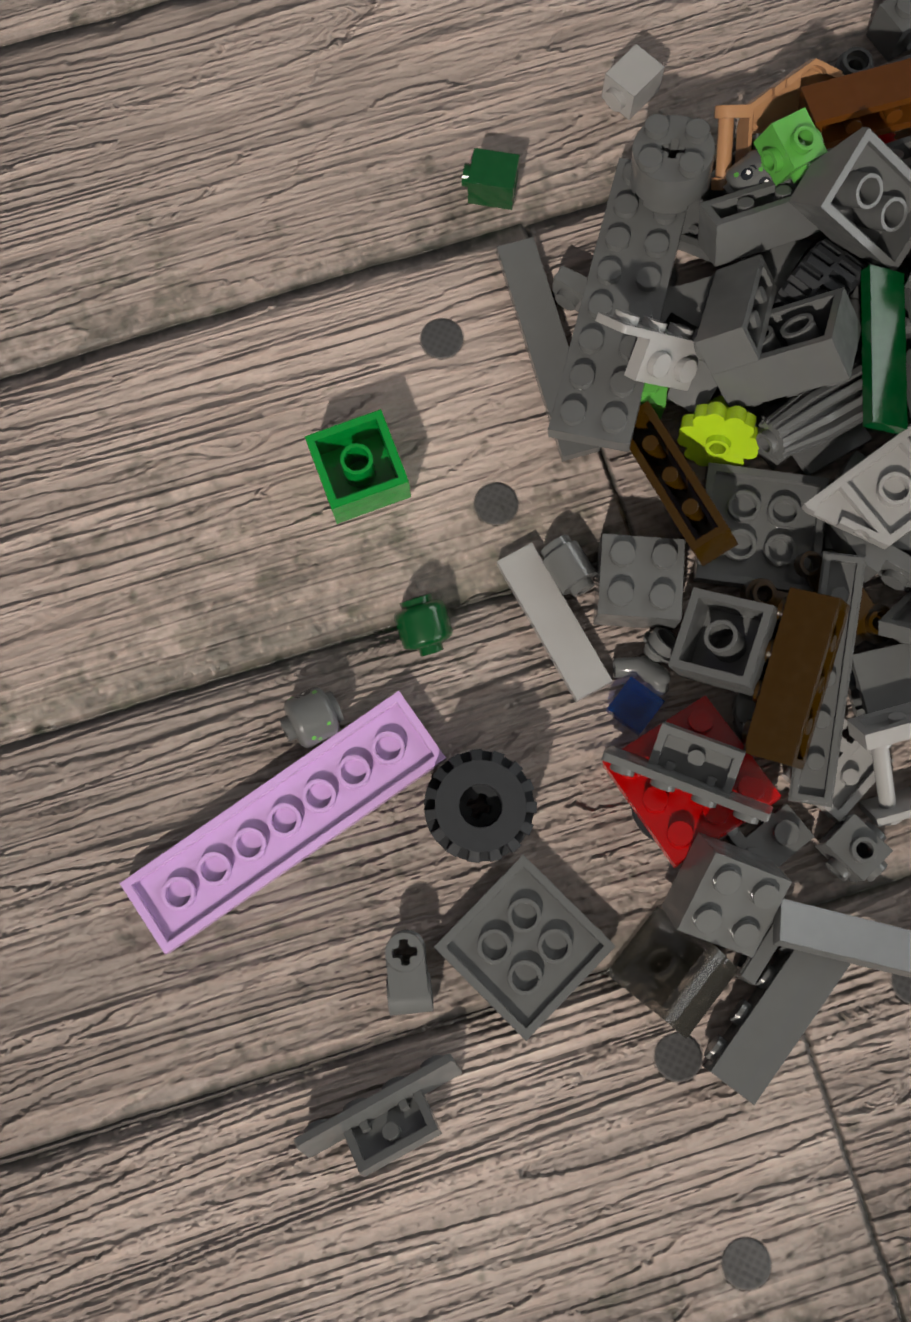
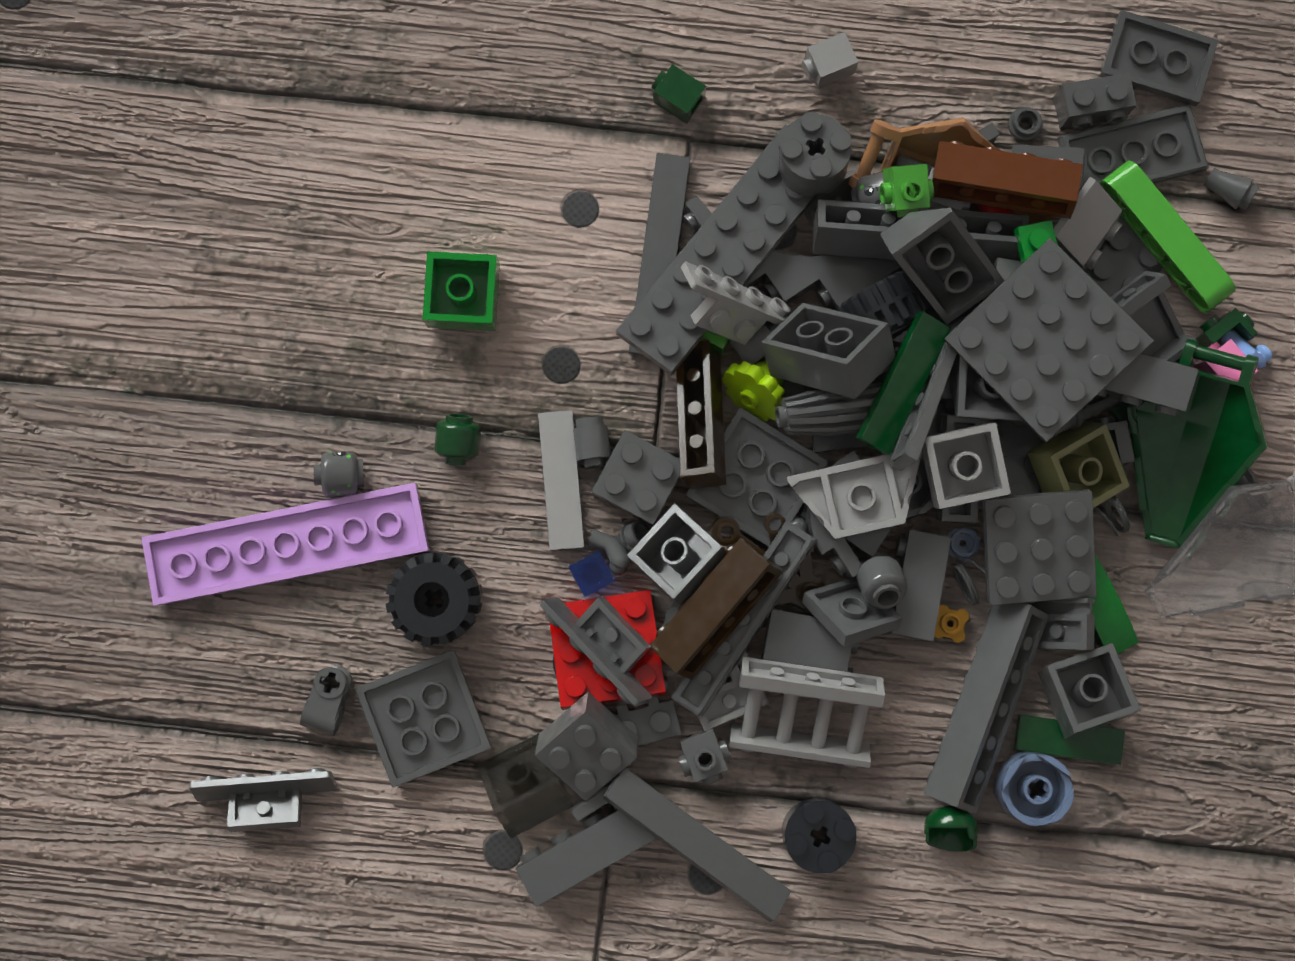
camera: 20 degrees right, 5 degrees up
(736, 315) = (803, 304): dark grey brick -> none

